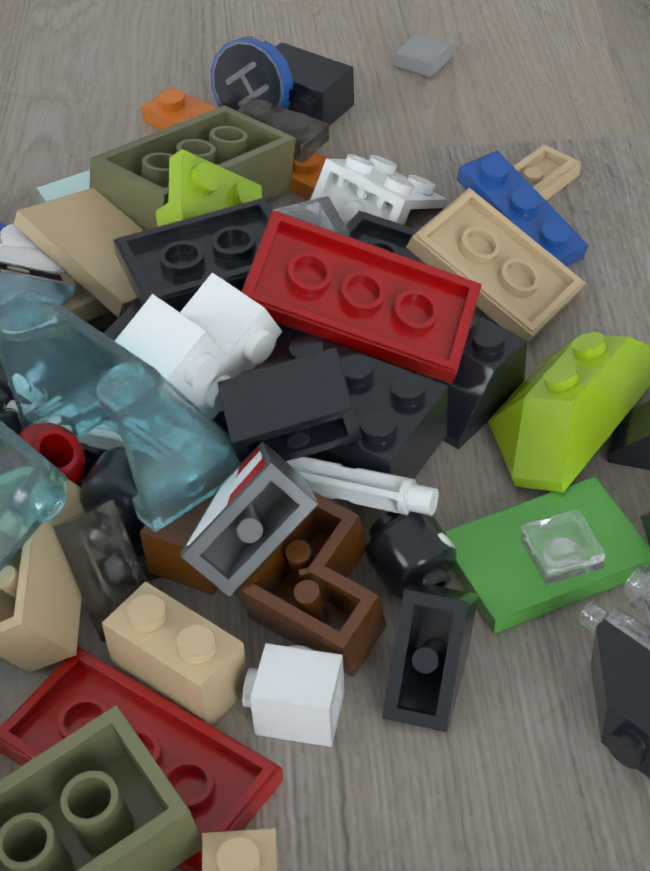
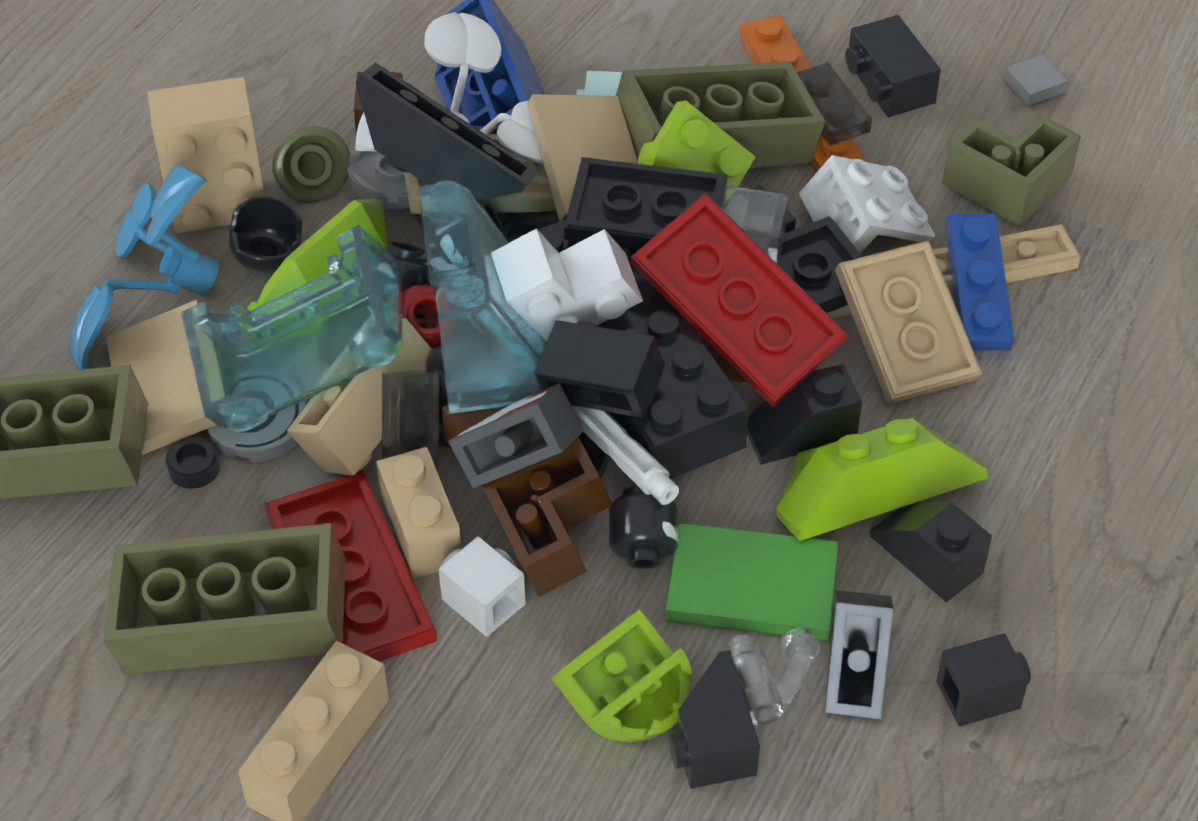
camera: 30 degrees right, 5 degrees up
(249, 71) = (843, 40): black tile -> none
(429, 655) = (596, 600): black slope -> none
(469, 119) = (1011, 173): none -> olive brick
(520, 710) = (627, 682): none -> lime slope
(562, 546) = (752, 581): clear plate -> none

